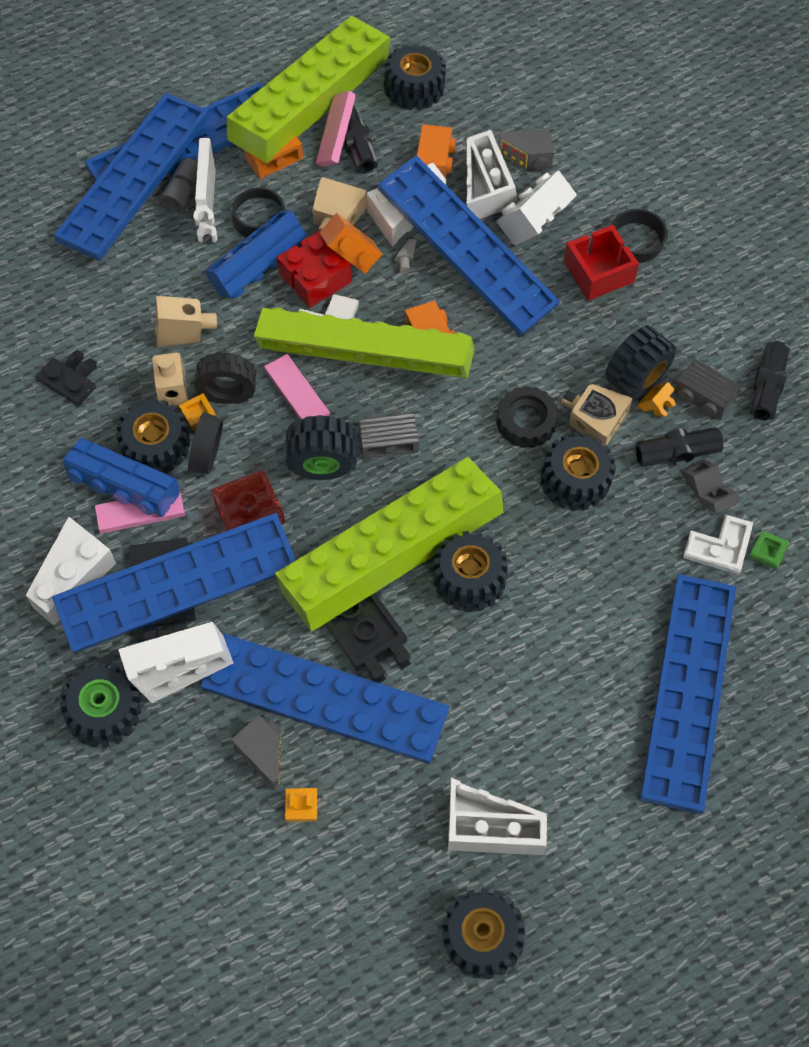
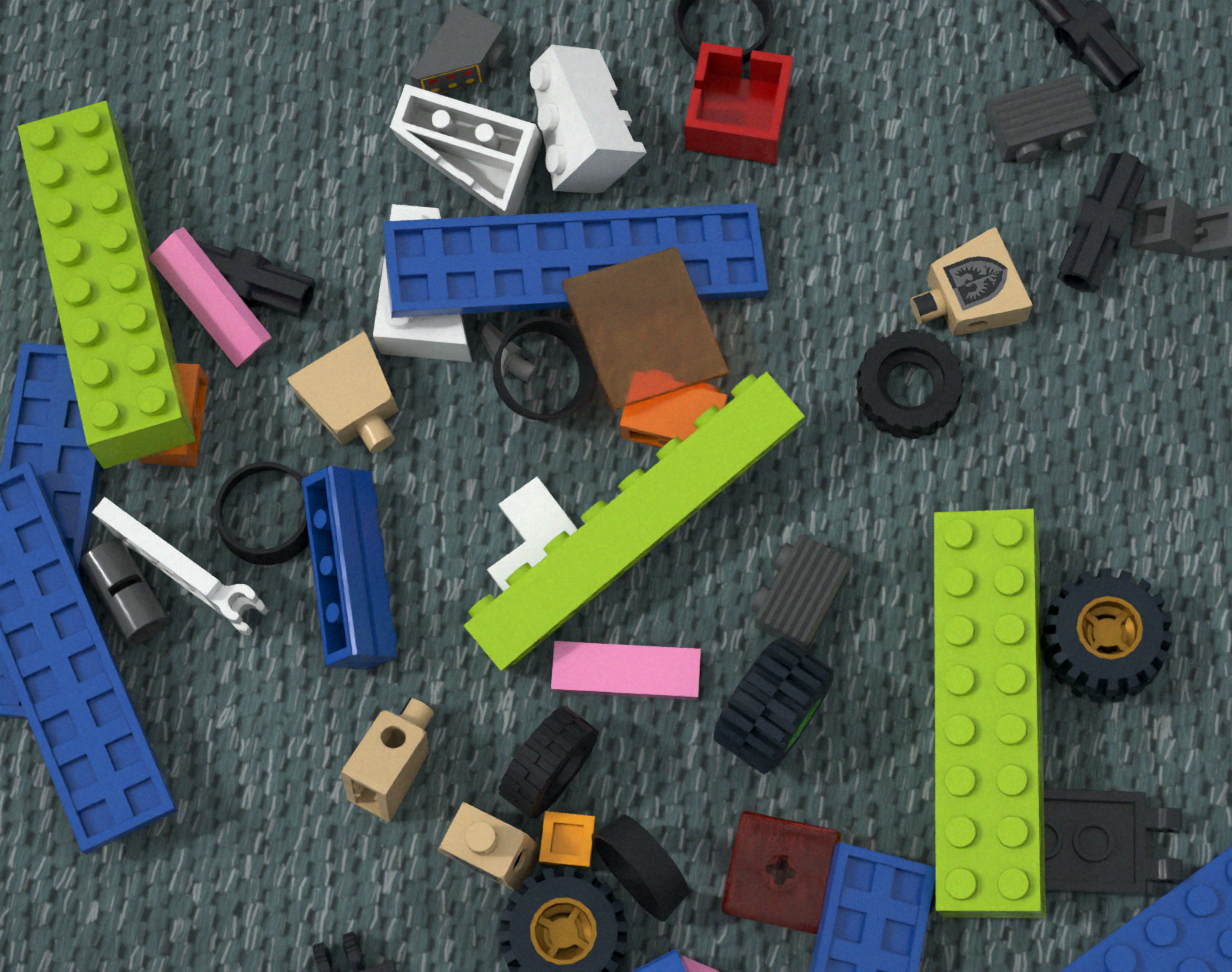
camera: 45 degrees left, 10 degrees up
(317, 270) = (439, 495): red piece -> none
(350, 243) = (448, 421): orange brick -> none
(414, 76) = (200, 116): black wheel -> none
(414, 244) = (573, 339): none -> black tyre
(435, 147) = (358, 185): orange brick -> none
(457, 288) = (644, 328): none -> clear orange piece
(577, 471) = (1052, 382): black wheel -> none
(640, 362) = (953, 174): black wheel -> none
(656, 398) = (1006, 193): light orange tile -> none

